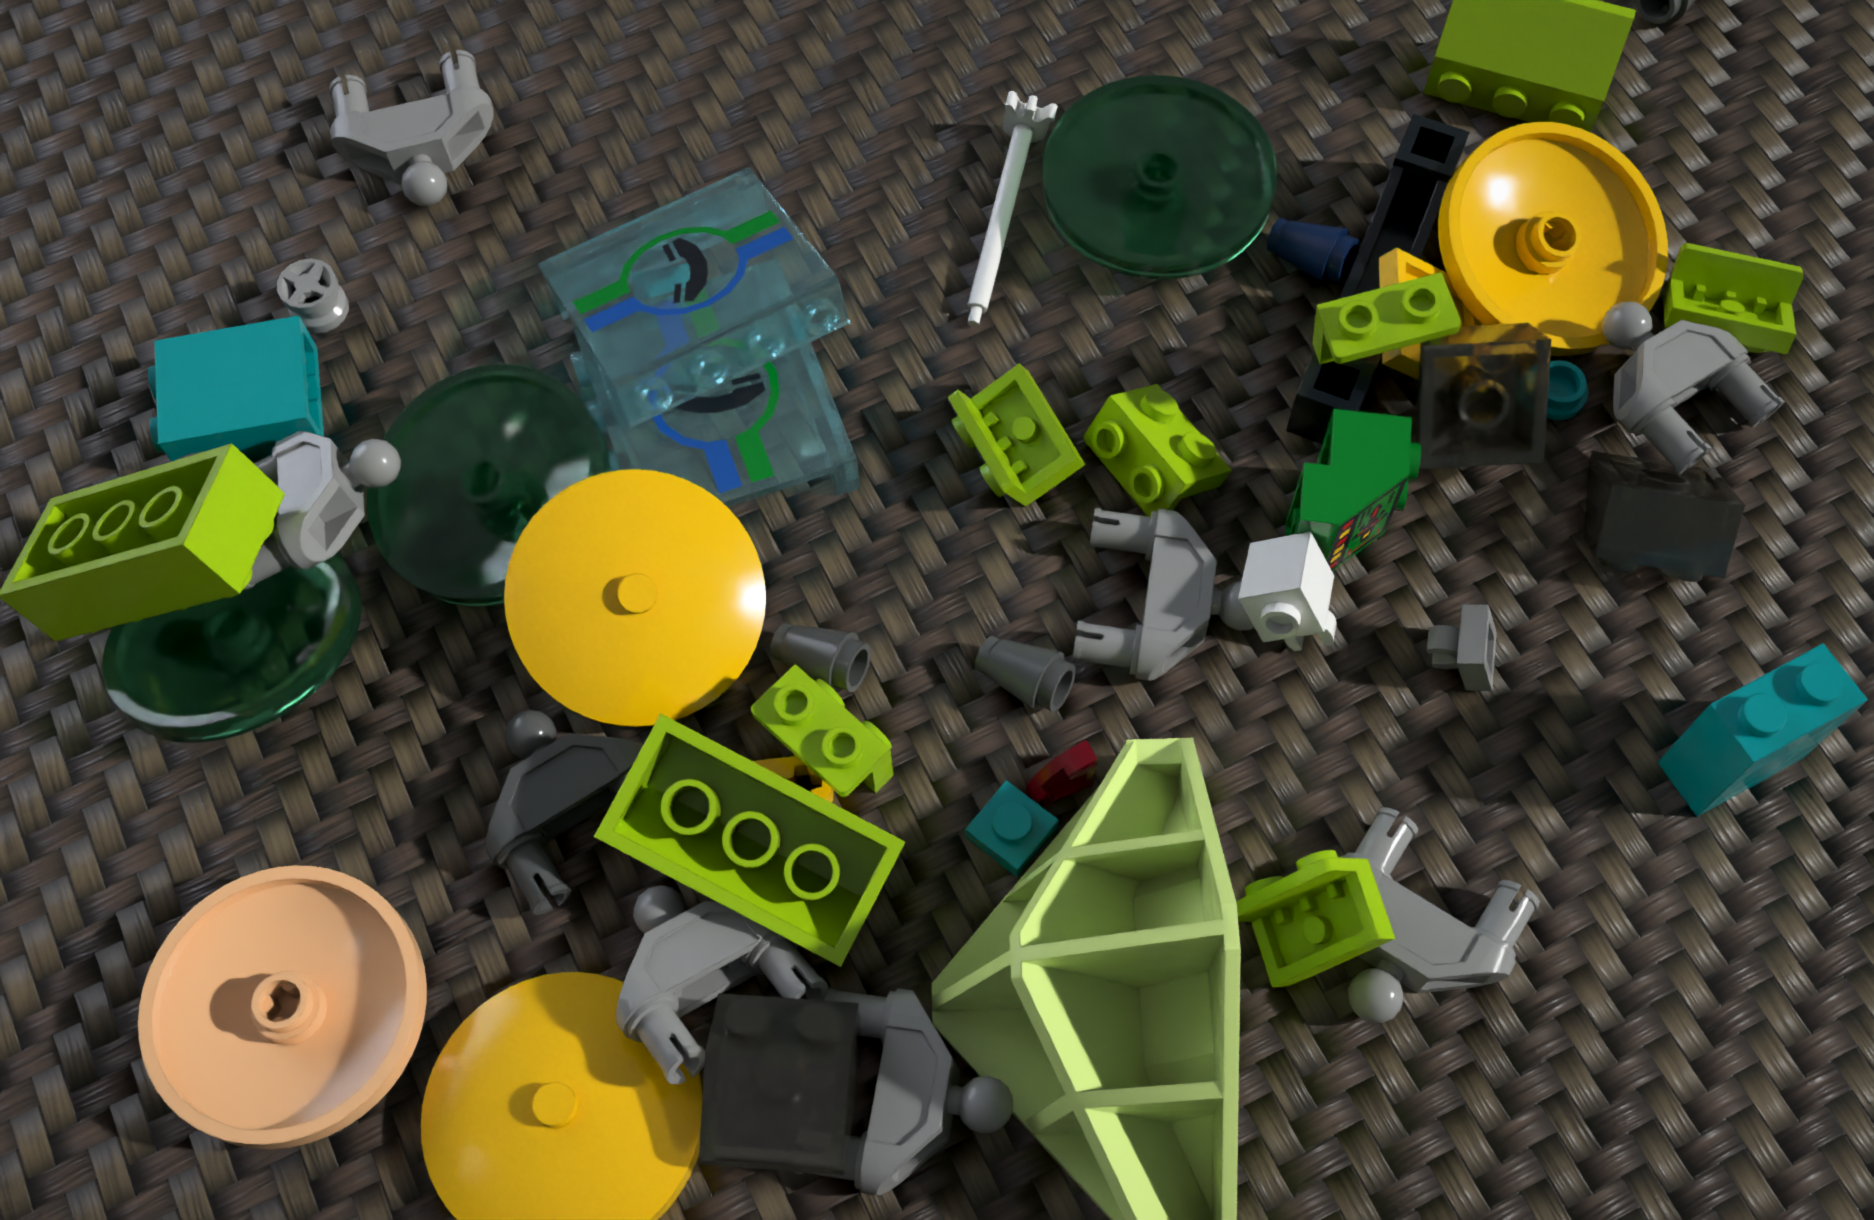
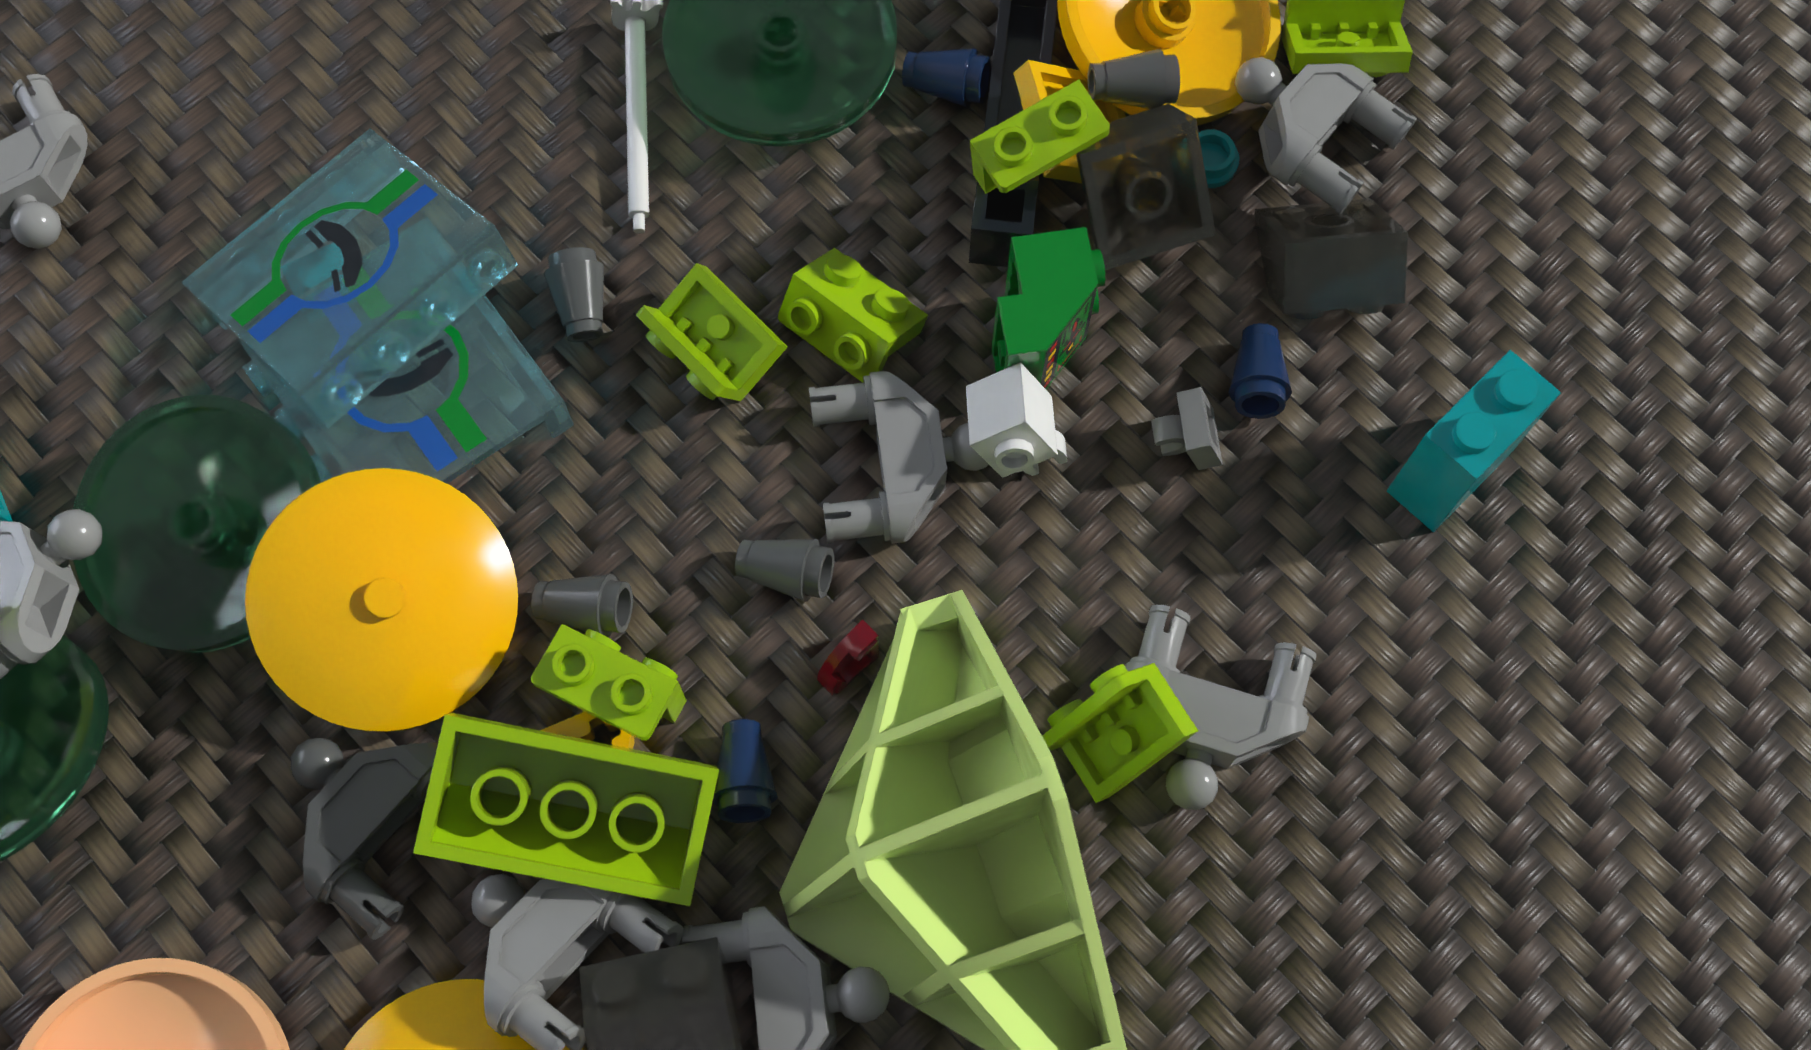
camera: 20 degrees left, 5 degrees up
(898, 364) = (577, 291): none -> dark grey cone
(927, 862) = (744, 776): none -> cone
(1011, 828) = (813, 721): teal plate -> none
(1501, 292) = (1136, 80): none -> dark grey cone
(1554, 611) = (1260, 374): none -> dark blue cone

